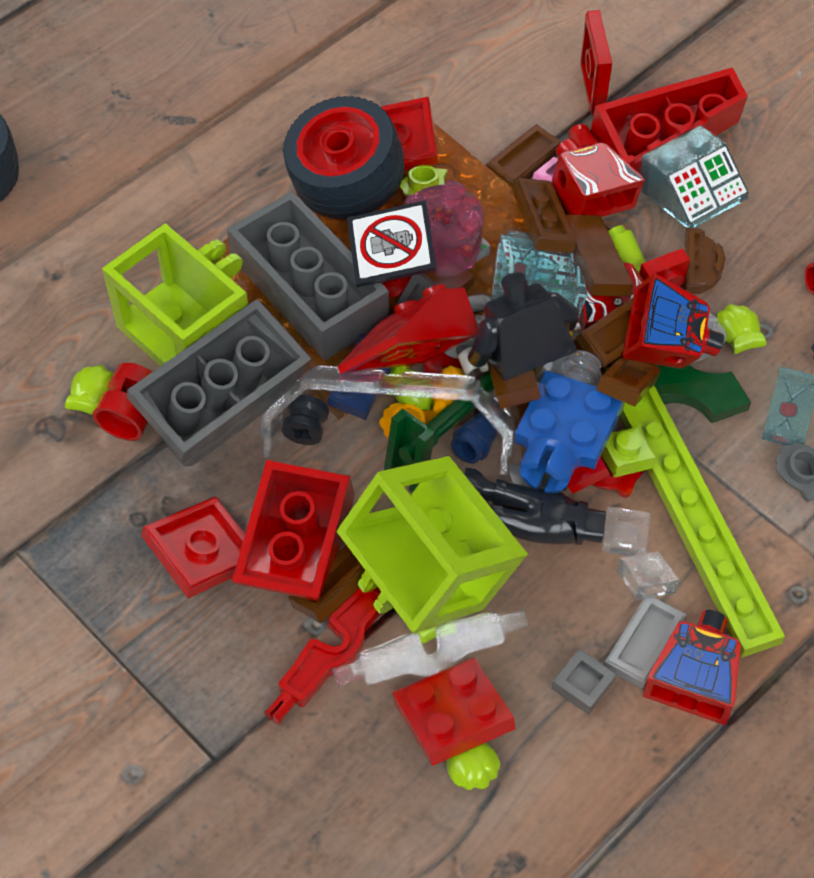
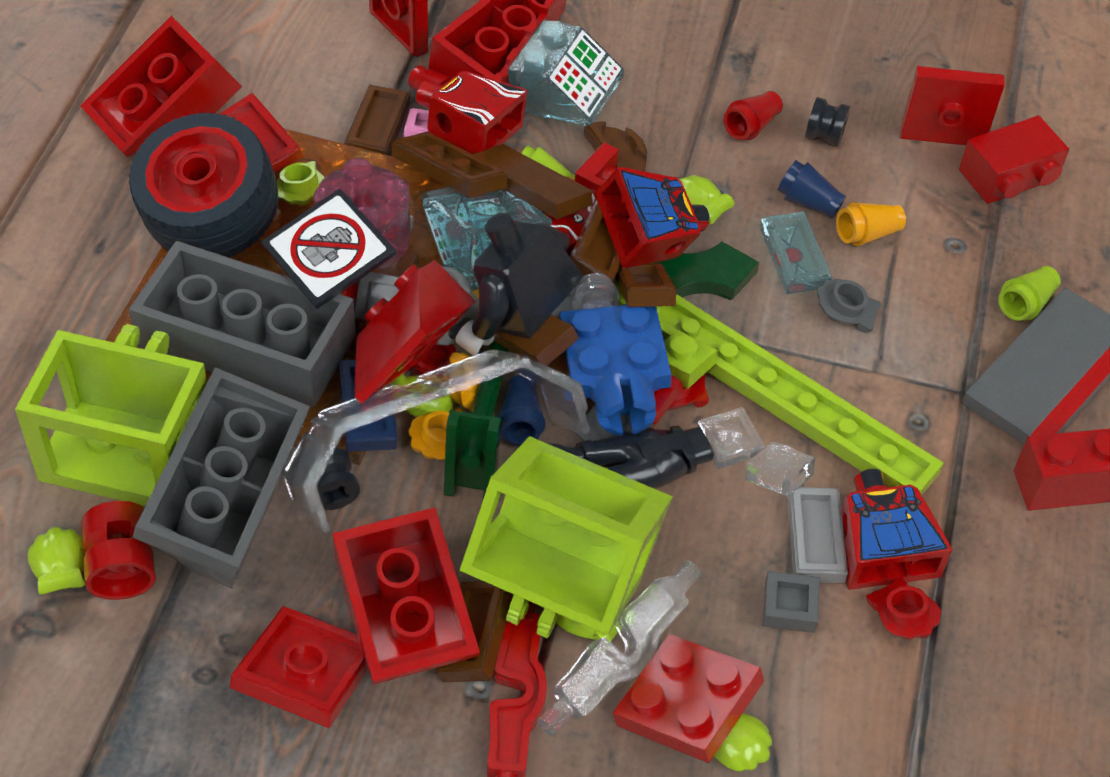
camera: 35 degrees left, 5 degrees down
(380, 64) = (159, 83): none -> red slope
(672, 735) = (905, 610): none -> red animal

